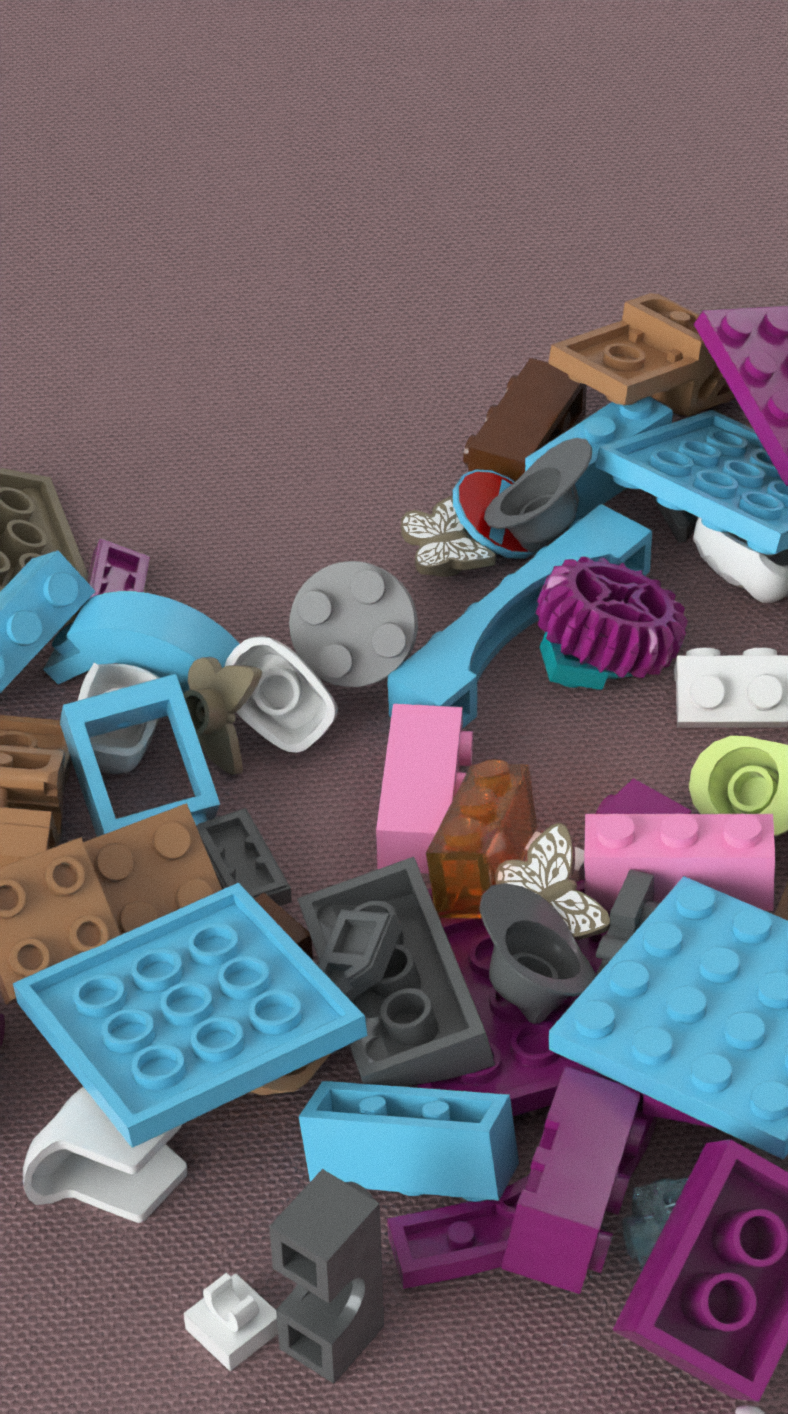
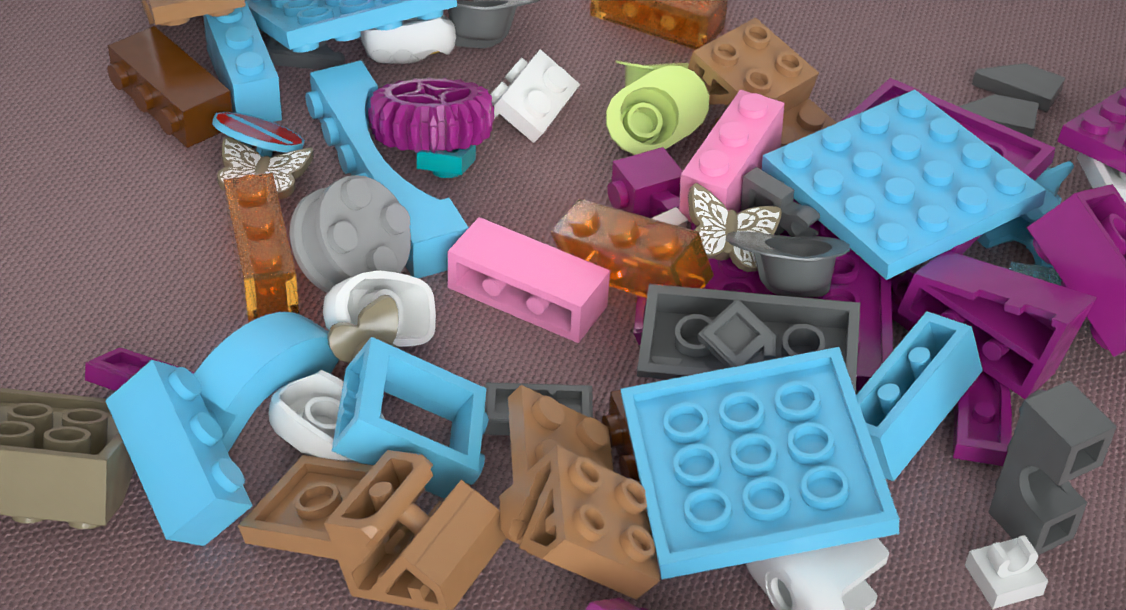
camera: 70 degrees left, 0 degrees up
(367, 540) = (261, 246): none -> clear orange brick
(544, 497) = (283, 86): dark grey piece -> none

